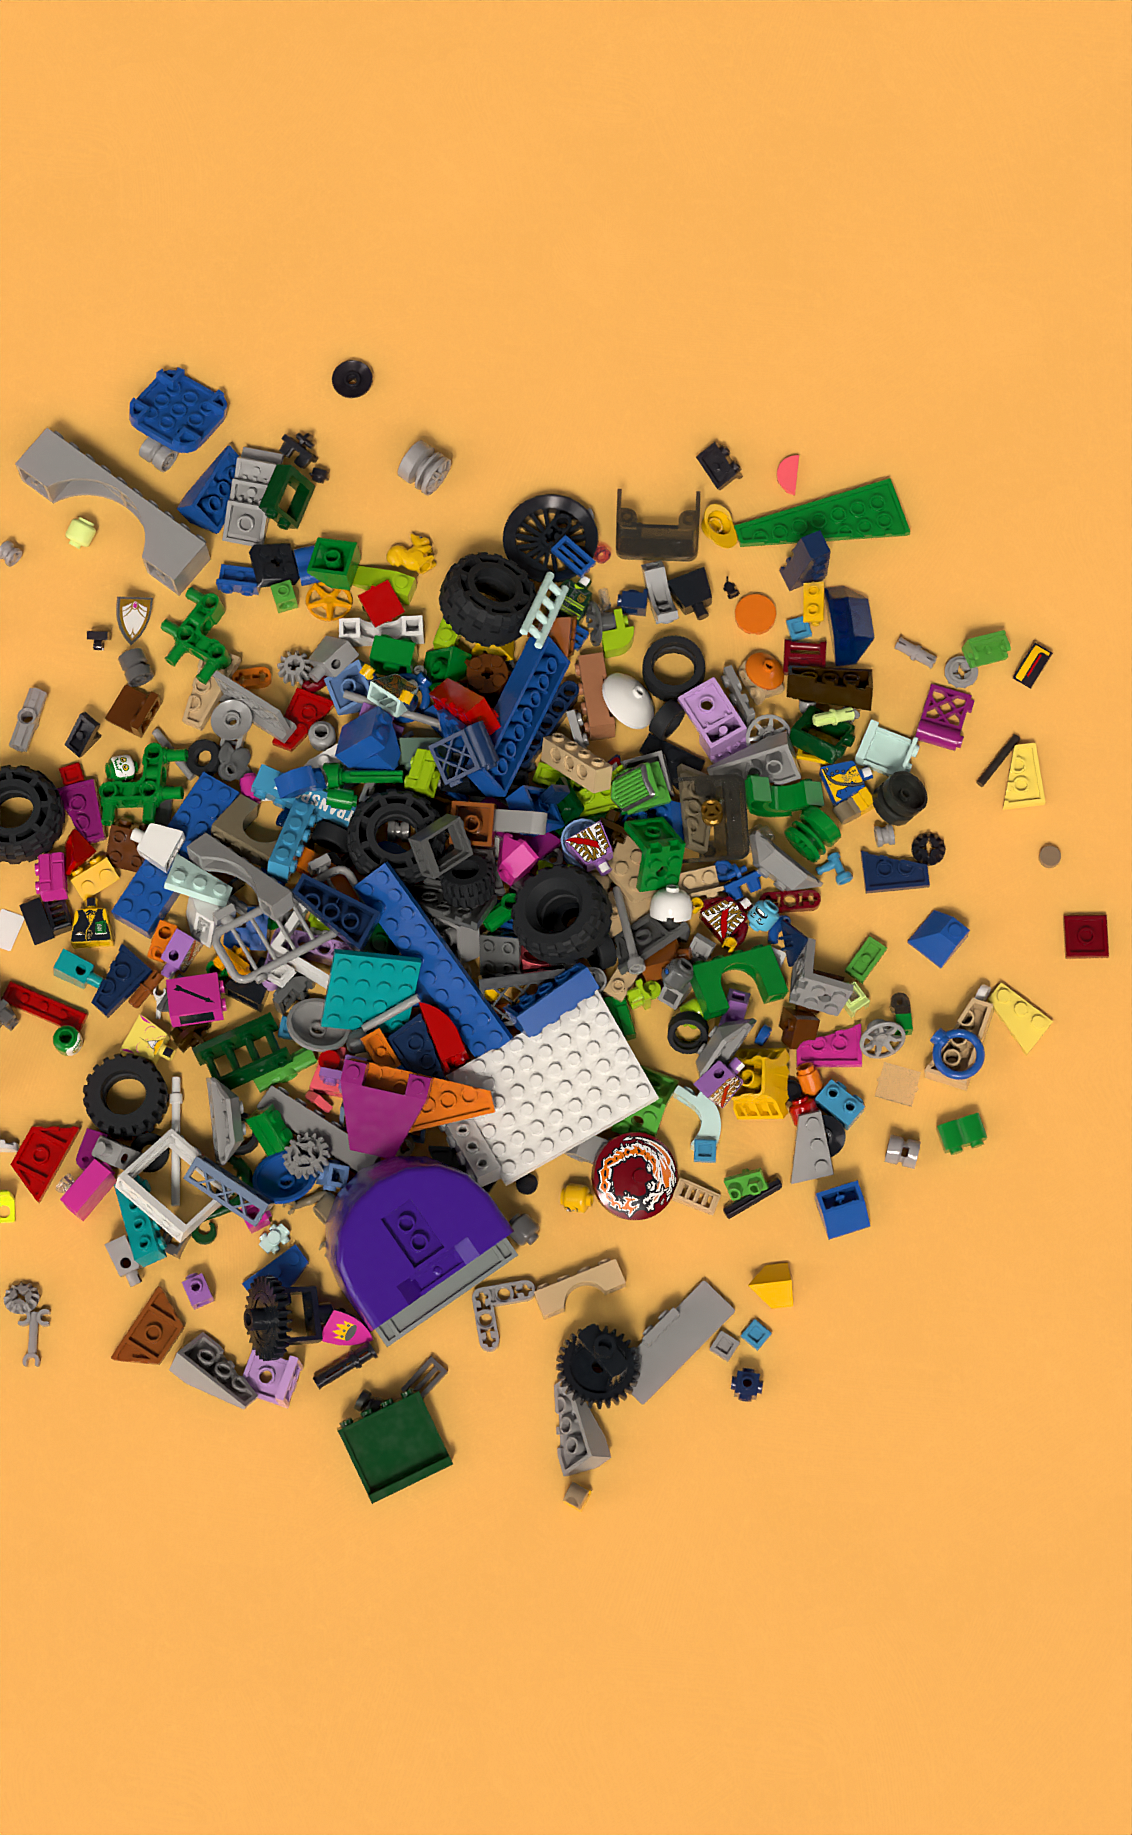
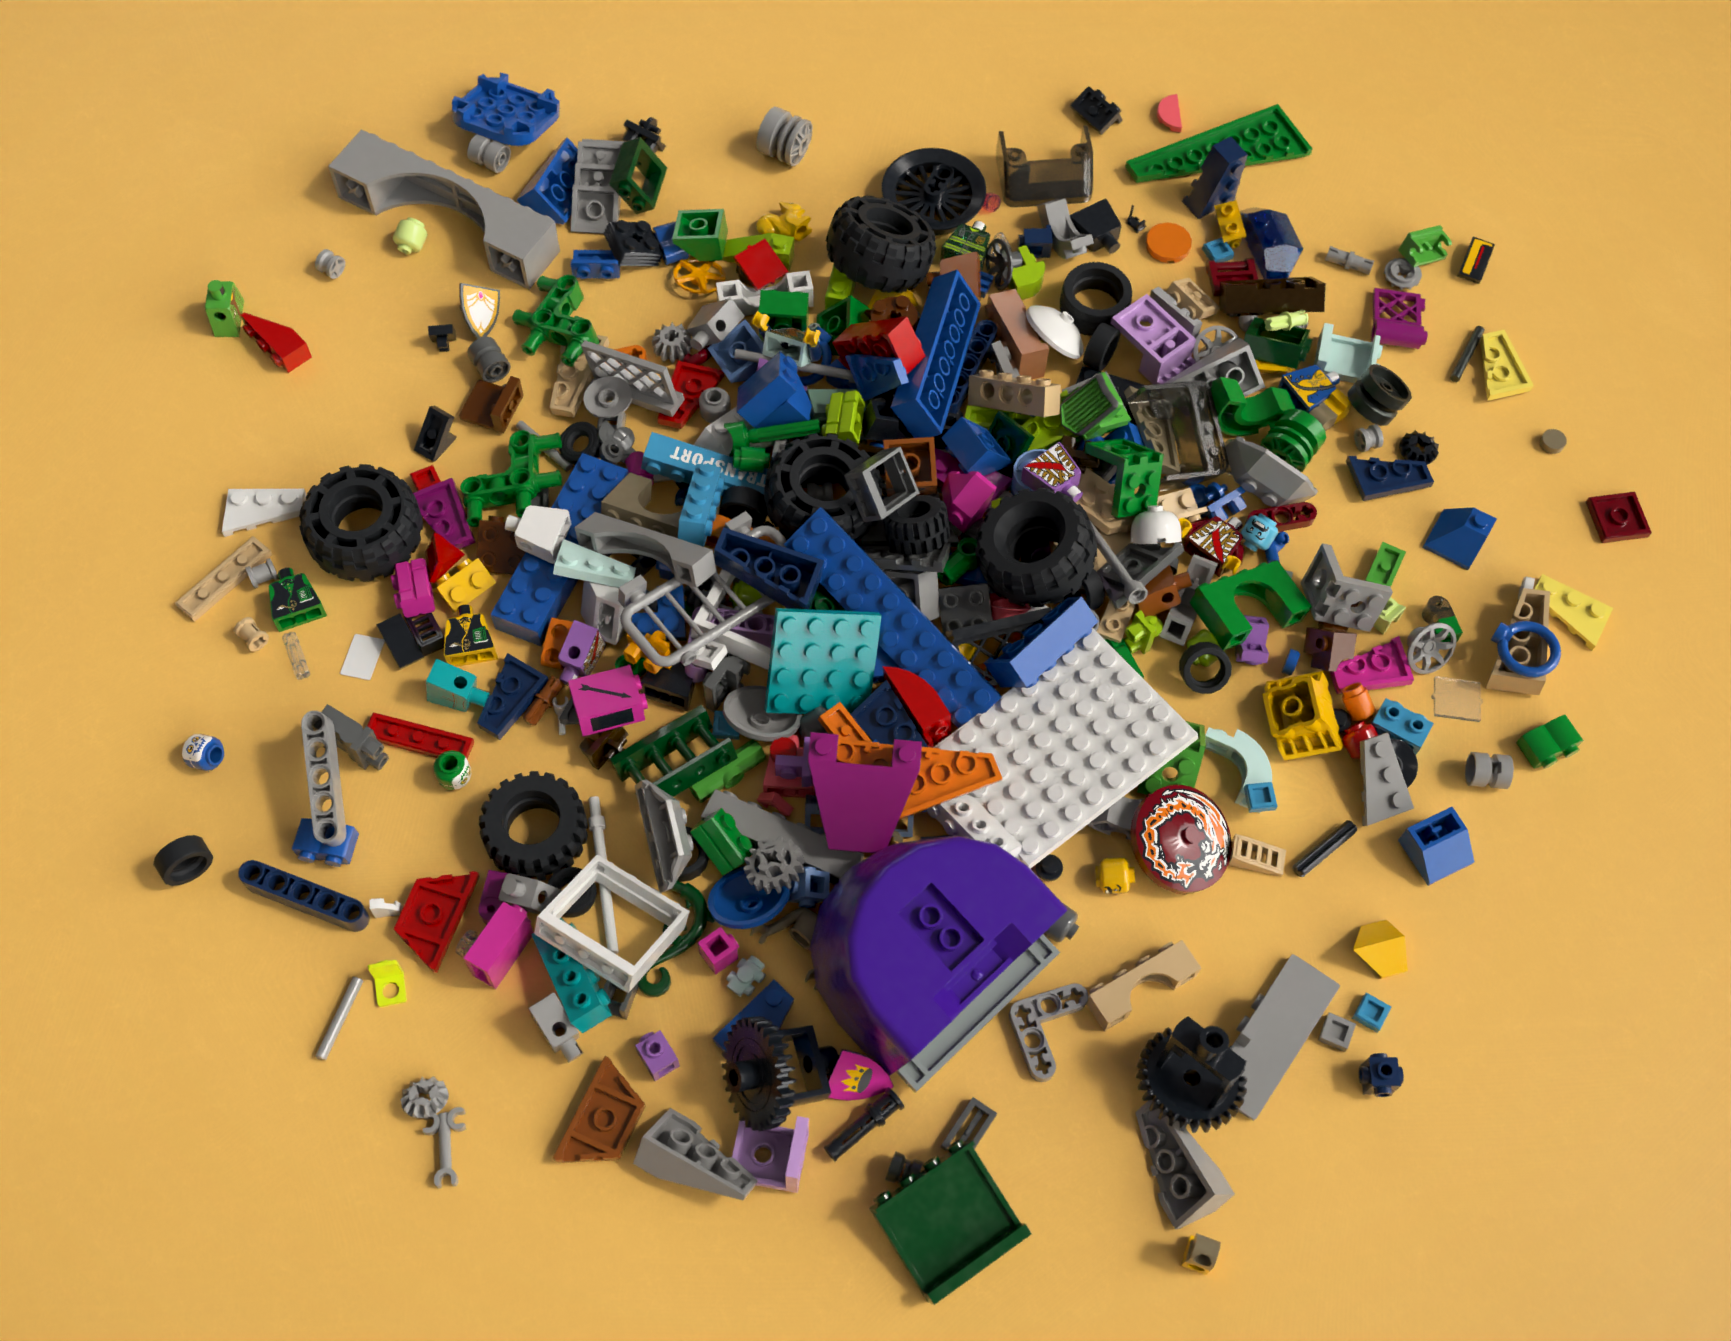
camera: 15 degrees left, 10 degrees down
(32, 708) = (368, 426): light grey piece -> none
(121, 768) = (483, 462): head -> none
(147, 1041) = (555, 756): light yellow torso -> none
(232, 1182) = (687, 908): sand blue fence -> none
(284, 596) = (649, 273): bright green brick -> none
(299, 781) = (699, 441): blue brick -> none
(319, 475) = (670, 158): black plate -> none
(348, 372) = (691, 68): black dish -> none
(391, 1013) = (850, 684): light grey bar -> none
(480, 751) = (909, 371): dark blue piece -> none
(520, 821) = (968, 453): light grey beam -> none
(534, 611) = (955, 244): light aqua bar -> none
(555, 794) = (997, 426): dark blue tile -> none
(585, 568) = (961, 203): blue tile -> none
(677, 973) = (1183, 598): dark grey head -> none
(709, 807) = (1177, 429): pearl gold wheel -> none
(719, 526) = (1109, 162): yellow piece -> none
(721, 1081) = (1263, 712): medium lavender torso -> none
(723, 1043) = (1251, 678): light grey wedge -> none
(746, 1183) = (1316, 830): bright green hips -> none
(764, 671) = (1195, 290): orange dish -> none
(793, 941) = (1301, 555): dark blue piece -> none
(834, 862) = (1334, 485): dark azure piece -> none

